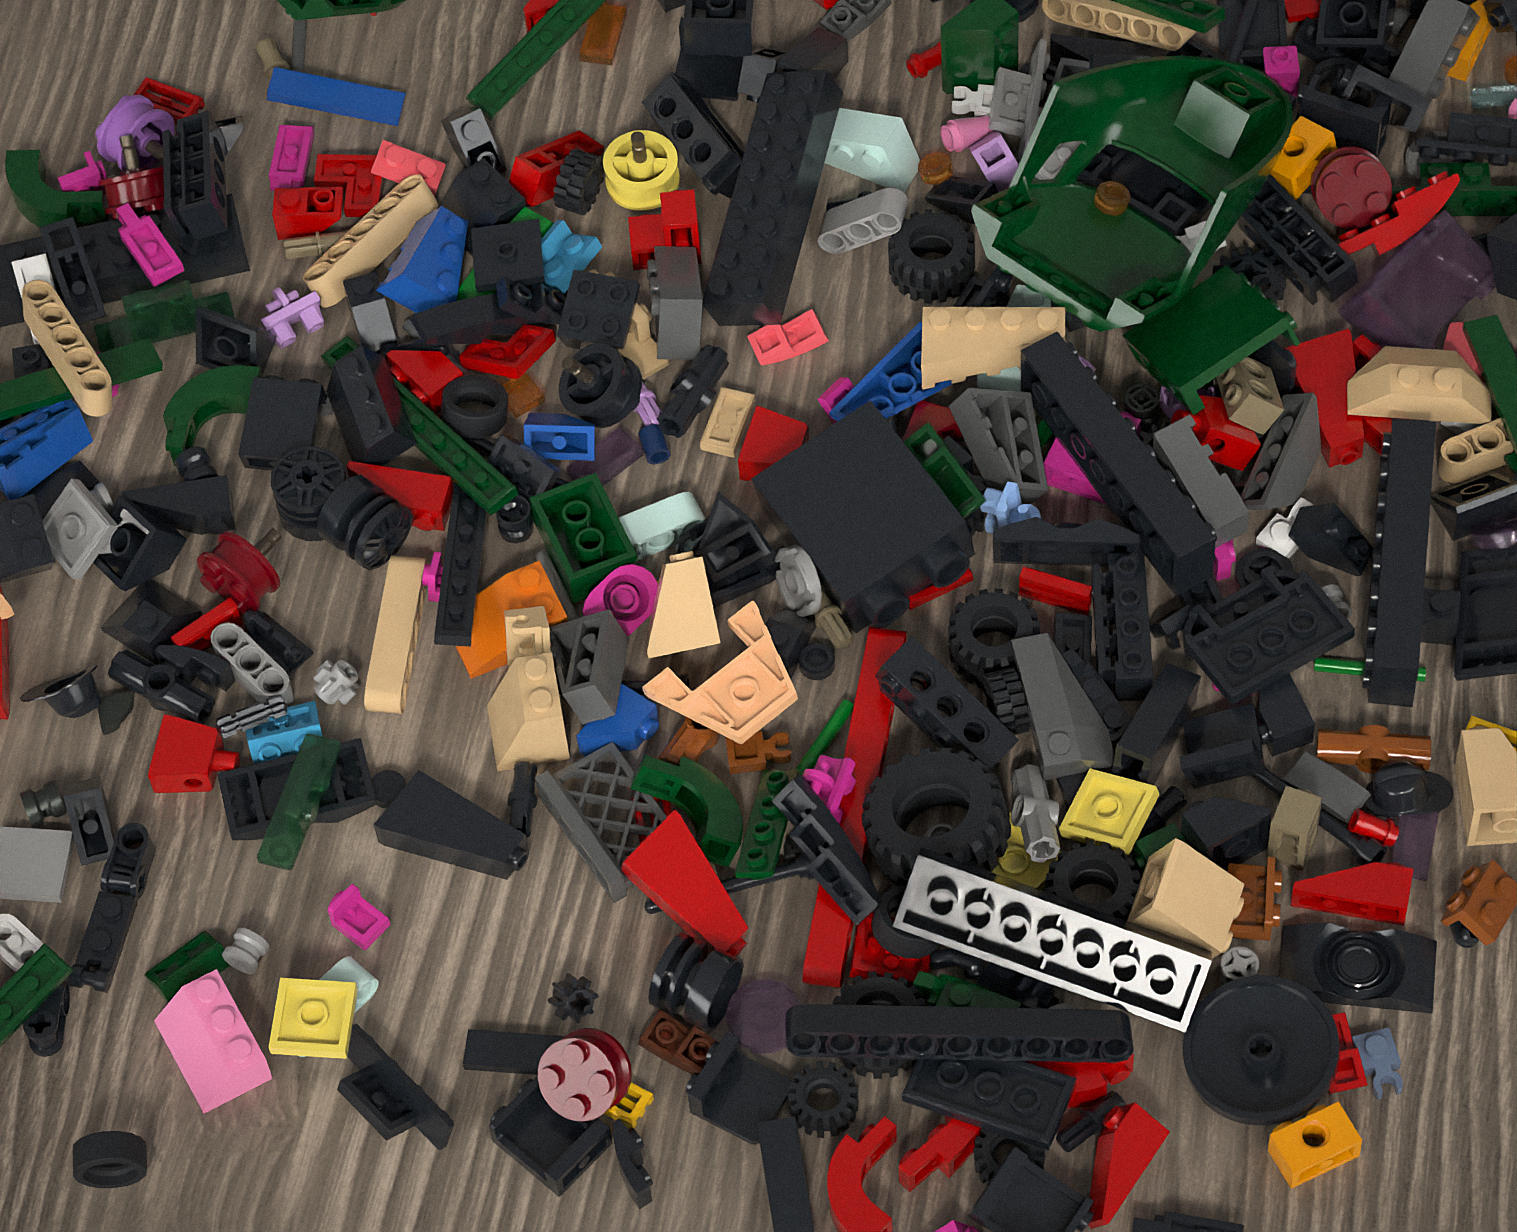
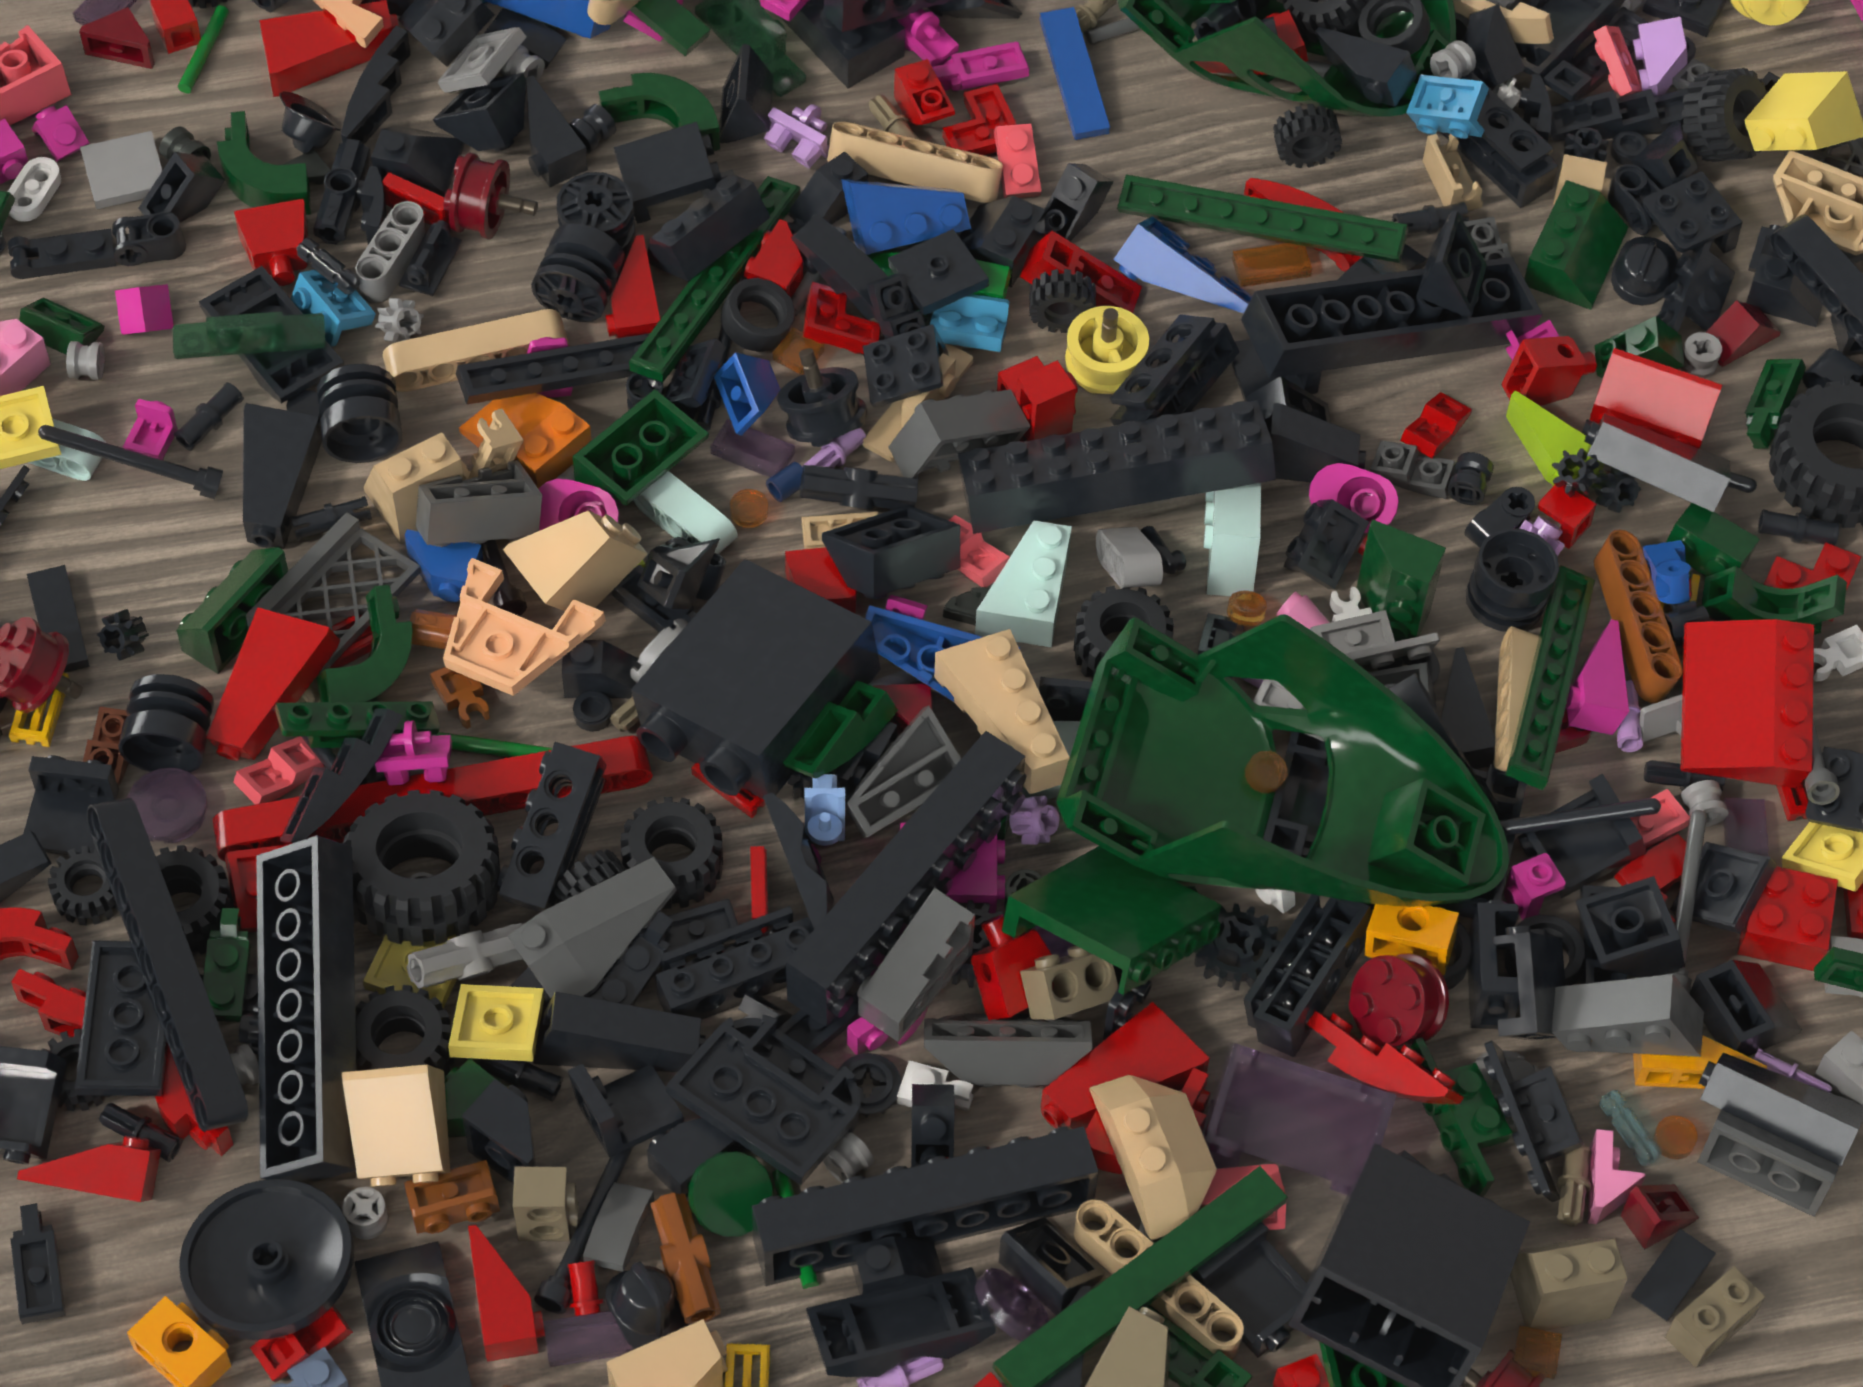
camera: 60 degrees right, 0 degrees up
(64, 633) = (380, 79): none -> black slope
(108, 756) = (254, 180): none -> dark green arch
(210, 887) = (144, 309): none -> dark pink panel
(248, 186) = (927, 38): none -> dark pink hips
(359, 867) = (209, 416): none -> black pin
(432, 736) = (359, 413): none -> black wheel
(432, 888) = (204, 480): none -> black piece
(566, 104) = (1162, 259): none -> wedge
(588, 896) = (220, 624): none -> dark green slope
(665, 481) = (749, 508): none -> clear orange tile
(771, 917) = (284, 770): none -> coral slope
(775, 380) = (894, 550): none -> black slope
(840, 357) = (964, 606): none -> pearl dark grey tile
(851, 302) = (1028, 587): none -> light aqua wedge
(876, 53) = (1357, 490): none -> dark pink piece
(903, 89) = (1325, 542): none -> black bracket
(1332, 695) = (726, 1190): none -> dark green tile

